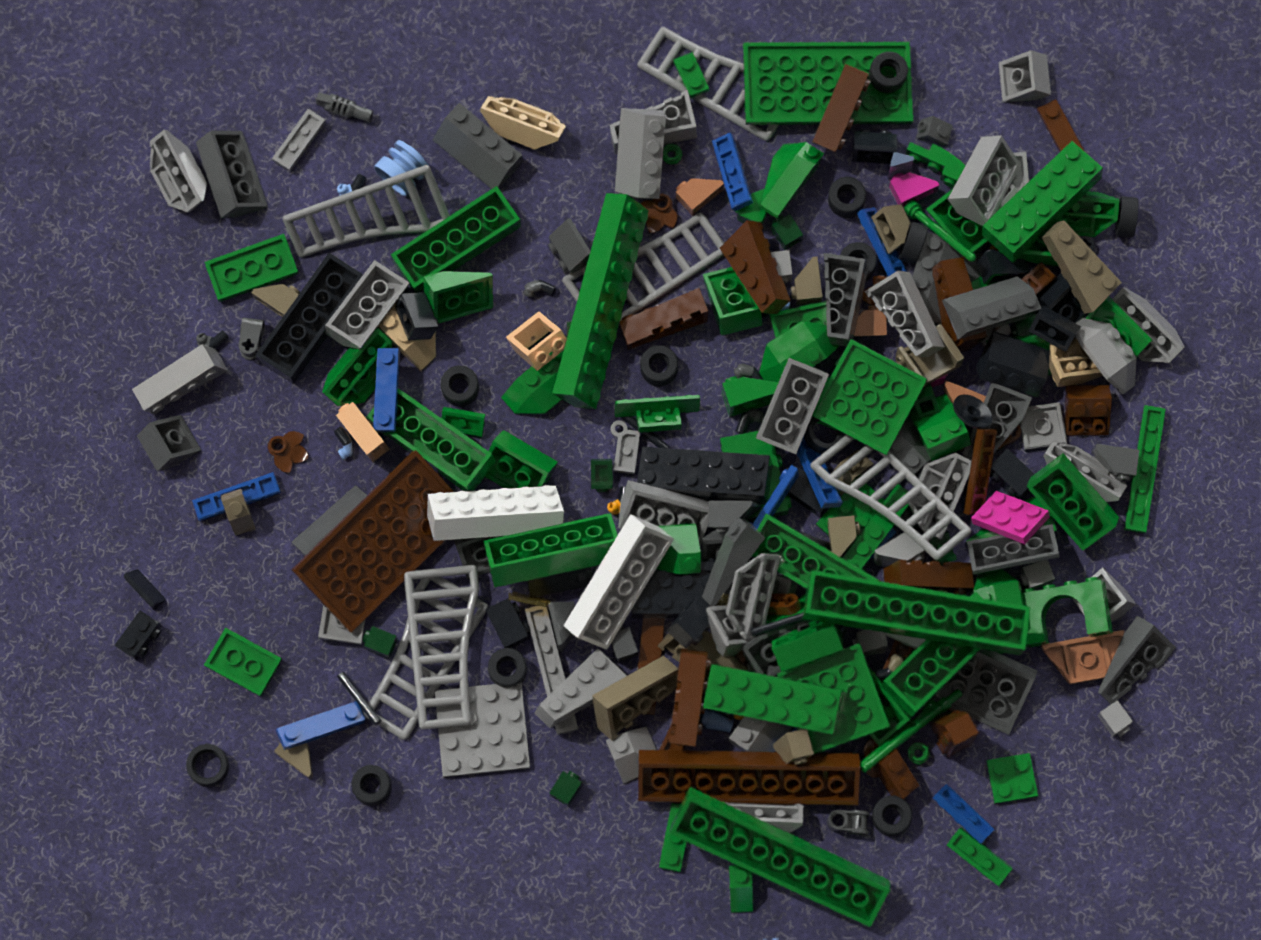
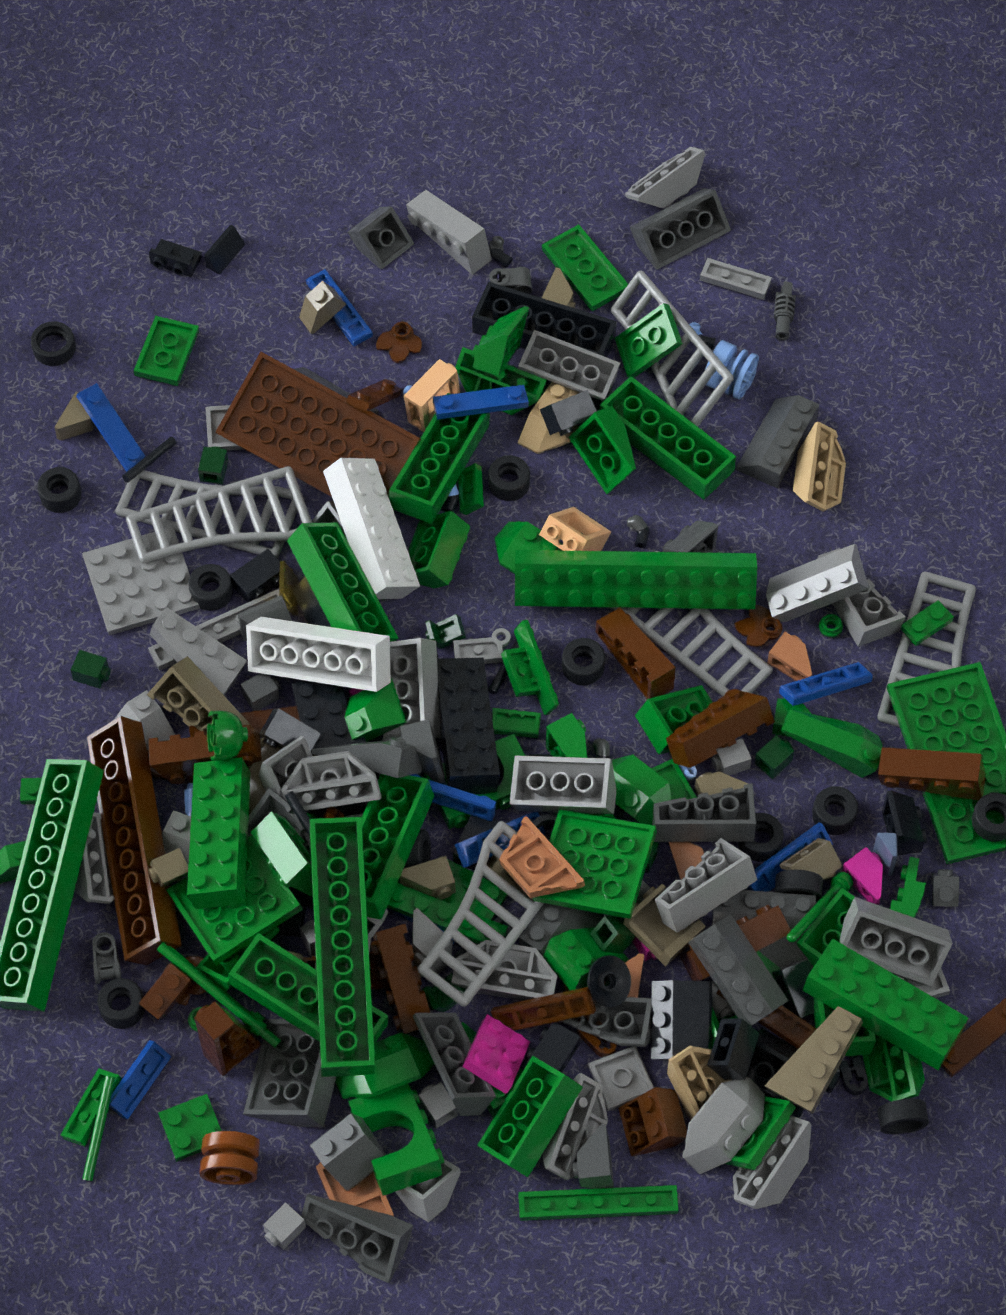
camera: 75 degrees right, 15 degrees down
(333, 356) = (500, 342): none -> green slope
(354, 481) = (374, 395): none -> reddish brown plate
(356, 230) = (648, 340): none -> green plate
(693, 673) = (225, 735): none -> green cylinder
(704, 433) = (516, 722): none -> green plate
(861, 442) = (537, 863): none -> nougat wing
(1002, 852) = (98, 1128): none -> green bar
(1056, 750) = (229, 1158): none -> dark orange wheel
(1071, 651) = (348, 1151): none -> dark grey slope

